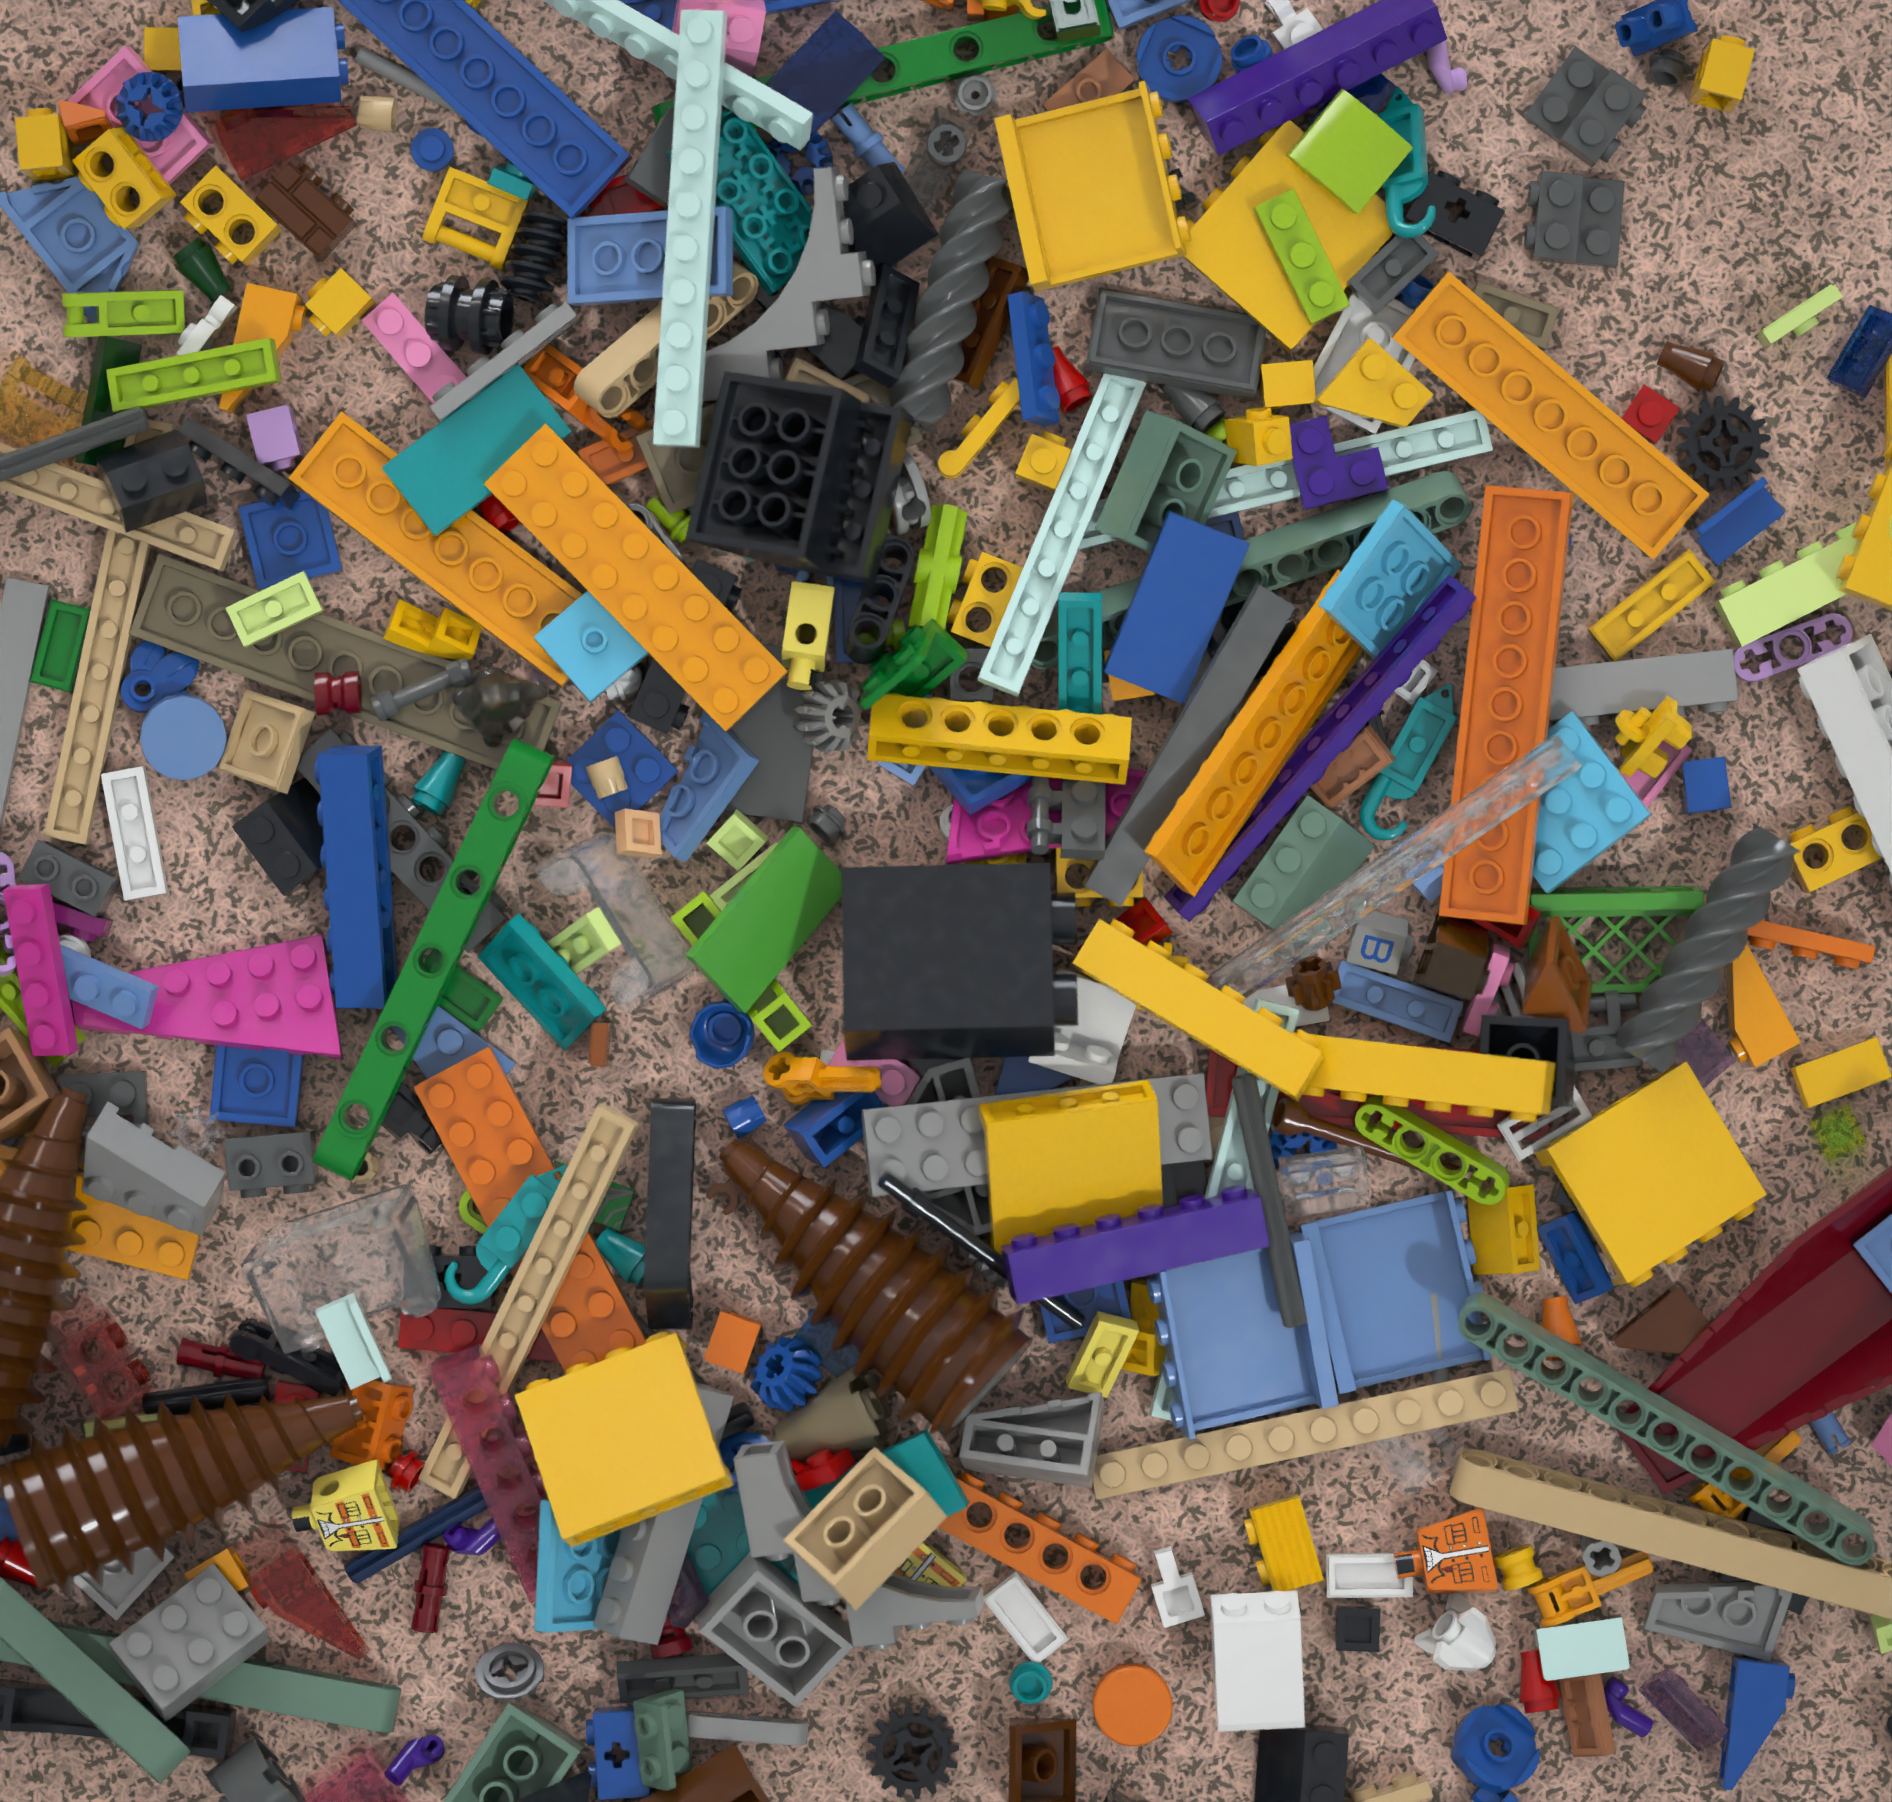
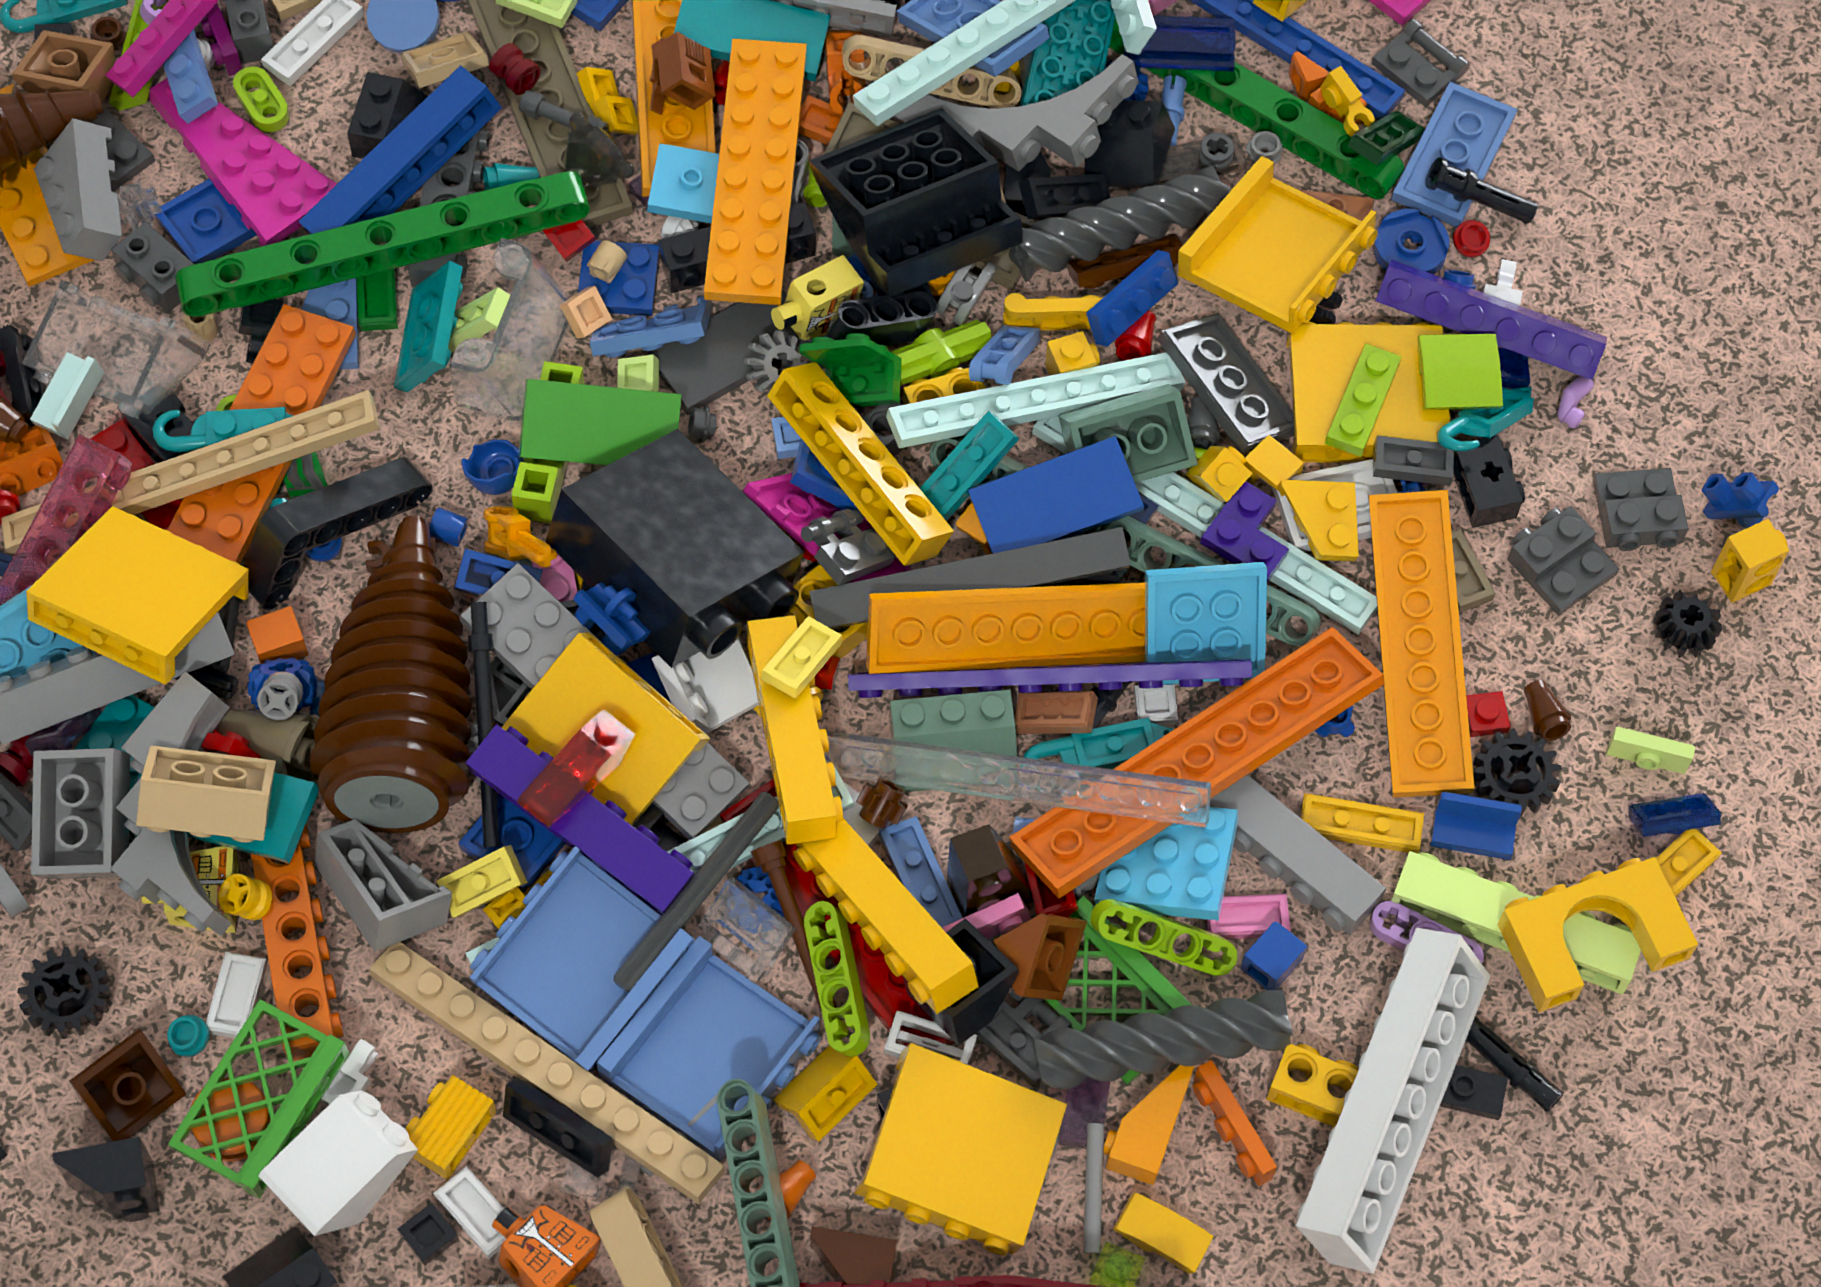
camera: 50 degrees right, 25 degrees down
(165, 931) = (262, 101): none -> lime plate
(478, 557) = (681, 72): none -> dark orange piece
(599, 1044) = (417, 390): dark orange tile -> none
(812, 1394) = (275, 704): none -> light grey wheel
(966, 1566) = (245, 897): none -> yellow wheel
(977, 1073) = (613, 614): none -> blue hips
(992, 516) = (1004, 354): none -> medium blue plate
(1106, 1225) = (577, 768): none -> clear red slope
(1153, 954) = (801, 657): none -> light yellow plate
(1178, 1662) = (293, 1112): none -> bright green fence
(1363, 1464) = (557, 1127): none -> black plate
(1380, 942) = (948, 819): light grey brick -> none
(1575, 1257) = (849, 1155): blue plate -> none
(1589, 895) = (1162, 942): none -> lime beam
(1644, 731) = (1288, 881): yellow hips -> none
(1668, 67) = (1716, 533): dark grey plate -> none
(1707, 168) = (1694, 637): none -> black gear
(1763, 1095) = (1093, 1188): none -> light grey bar

